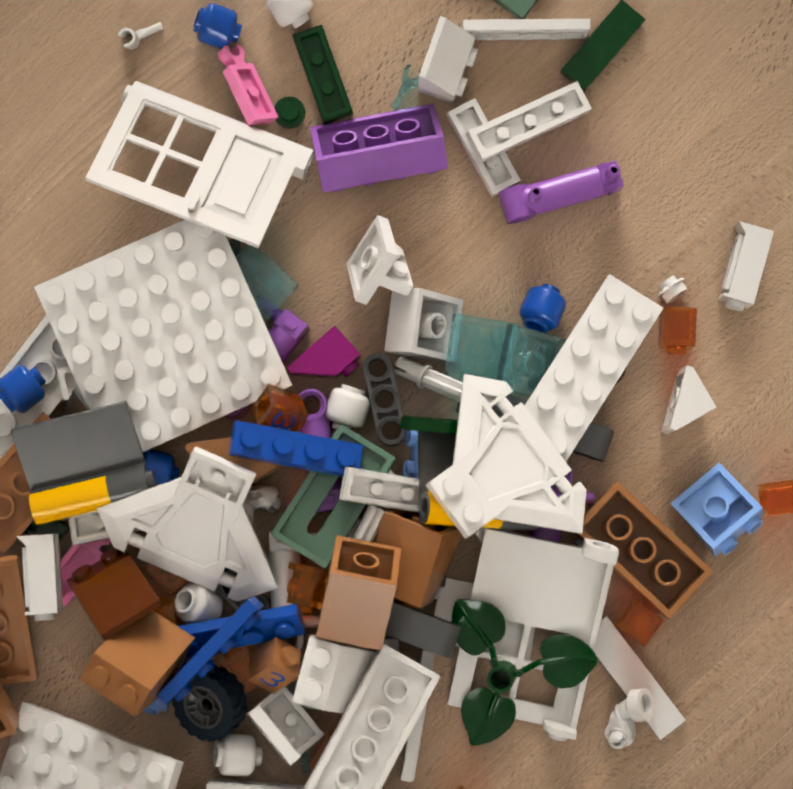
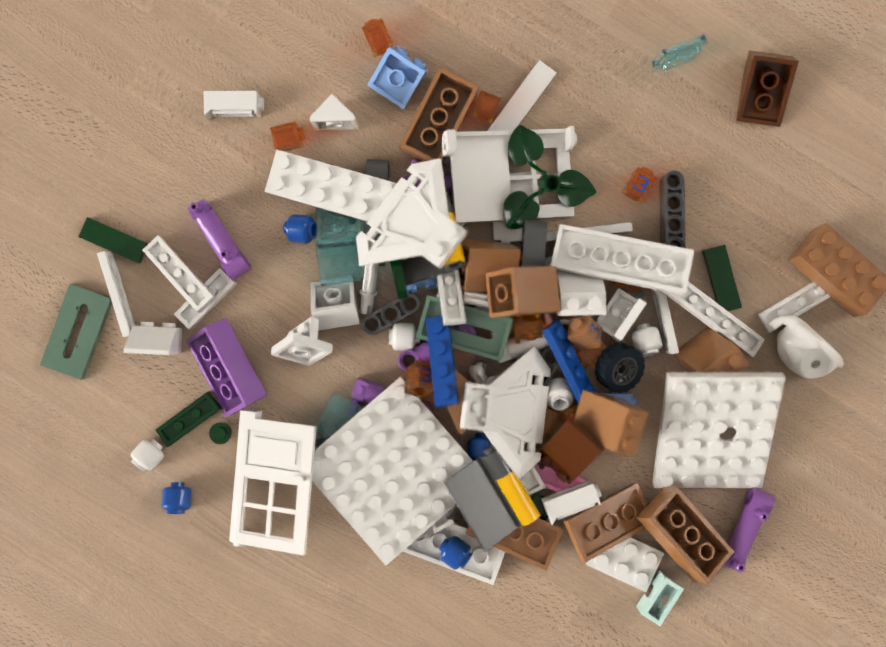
camera: 100 degrees left, 5 degrees up
(138, 35) = (198, 548): white hand -> none
(202, 662) = (581, 371): blue plate -> none
(247, 87) = (211, 466): bright pink plate -> none
(327, 357) = (374, 359): magenta slope -> none
(407, 83) = (177, 361): clear light blue hand -> none
(637, 707) = (541, 92): white arm -> none
(672, 289) = (262, 148): white plate -> none

